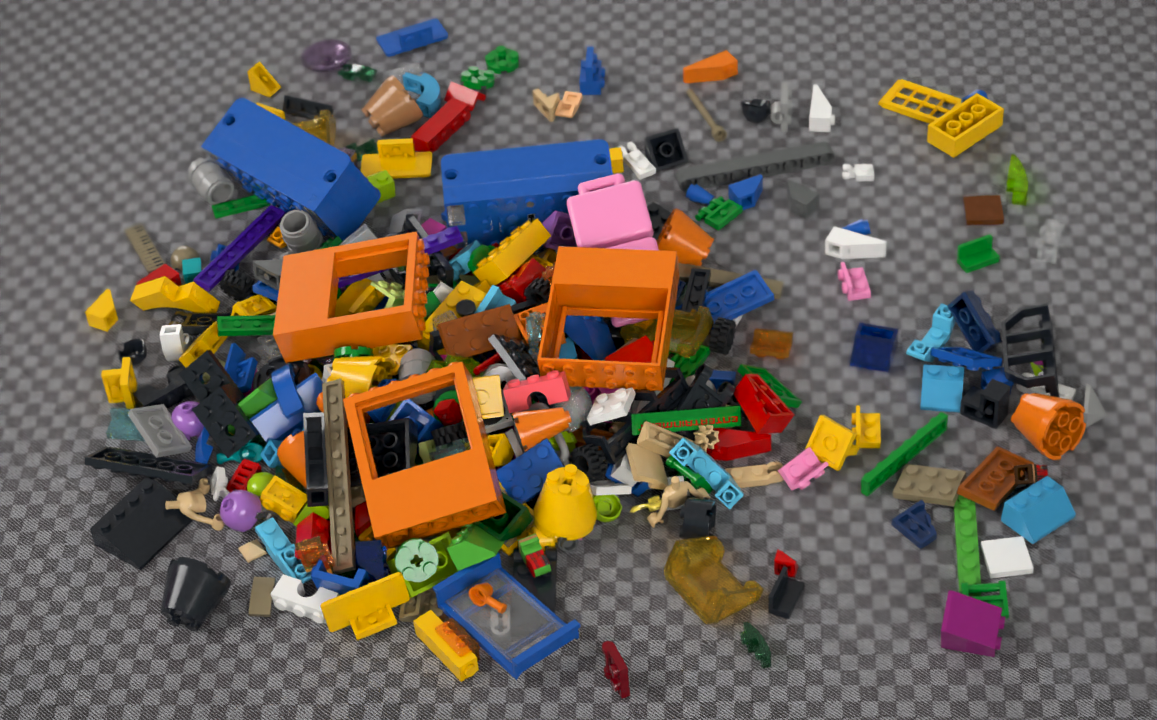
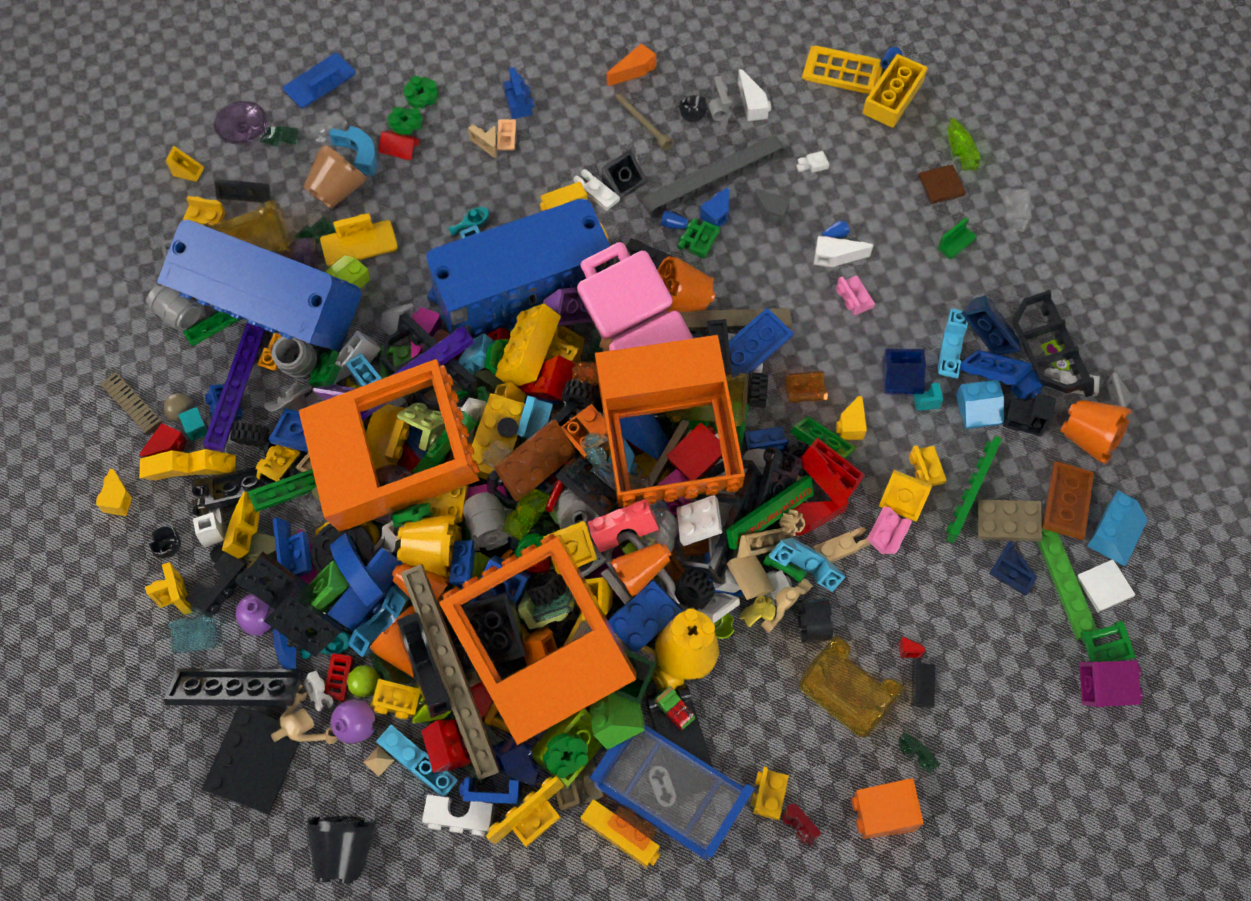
camera: 20 degrees left, 20 degrees up
(159, 430) = (230, 640): light grey plate -> none
(260, 597) = (411, 821): dark tan slope -> none
(268, 272) = (285, 421): dark grey slope -> none
(311, 551) = (457, 774): clear orange bracket -> none
(441, 126) = (389, 187): red brick -> none
(481, 595) = (639, 770): orange bar -> none
(590, 648) = (770, 793): none -> yellow bracket
(705, 678) = (887, 809): none -> orange slope
(806, 378) = (852, 421): none -> yellow slope
(892, 379) = (930, 399): none -> teal panel
(1032, 473) = (1100, 490): dark brown leg -> none

